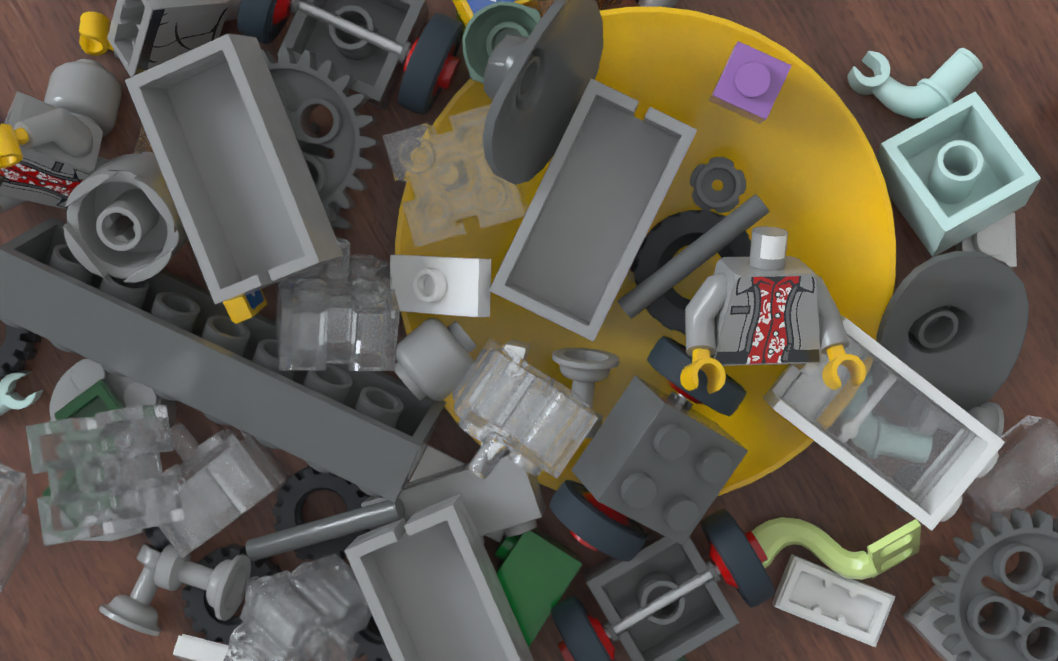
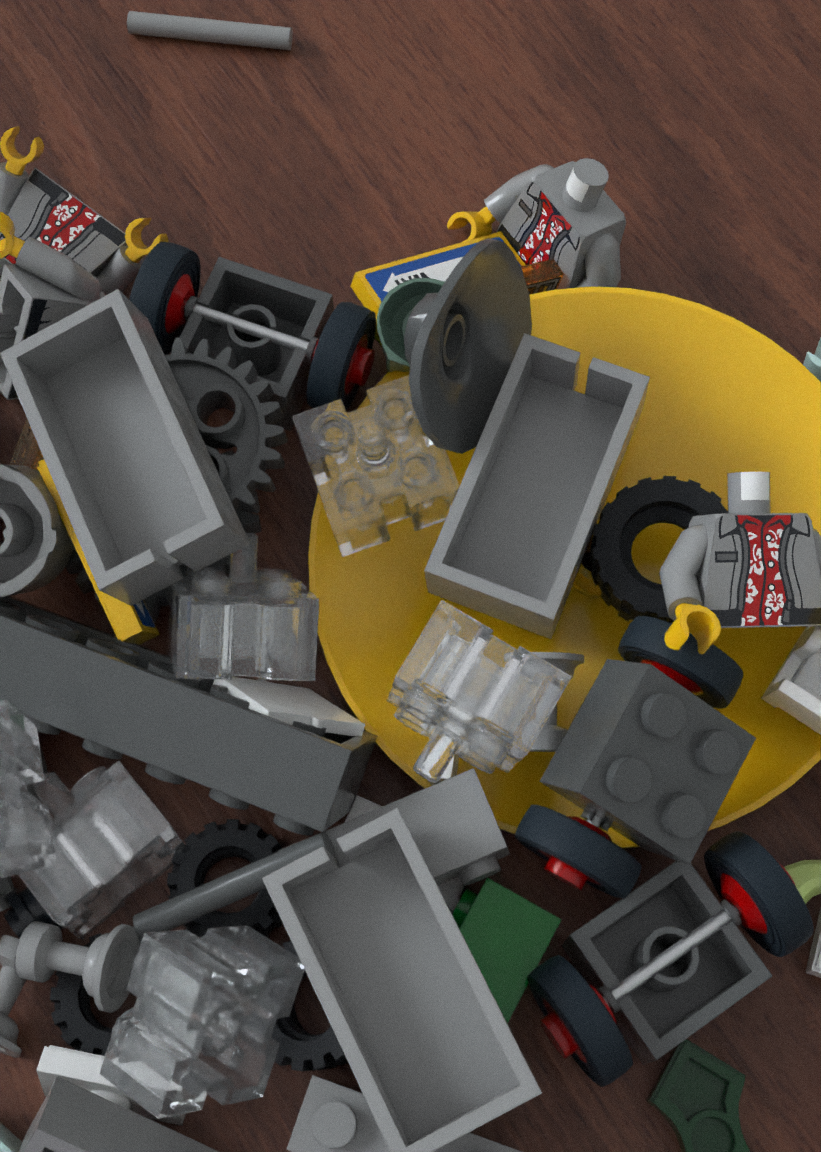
camera: 10 degrees left, 20 degrees down
(374, 389) = (292, 704): none -> white piece
(434, 359) = (359, 672): light grey head -> none
(442, 284) = (368, 583): white plate -> none
(693, 256) = (658, 524): dark grey bar -> none
(733, 185) = (677, 442): dark grey plate -> none
(750, 82) = (699, 342): medium lavender brick -> none

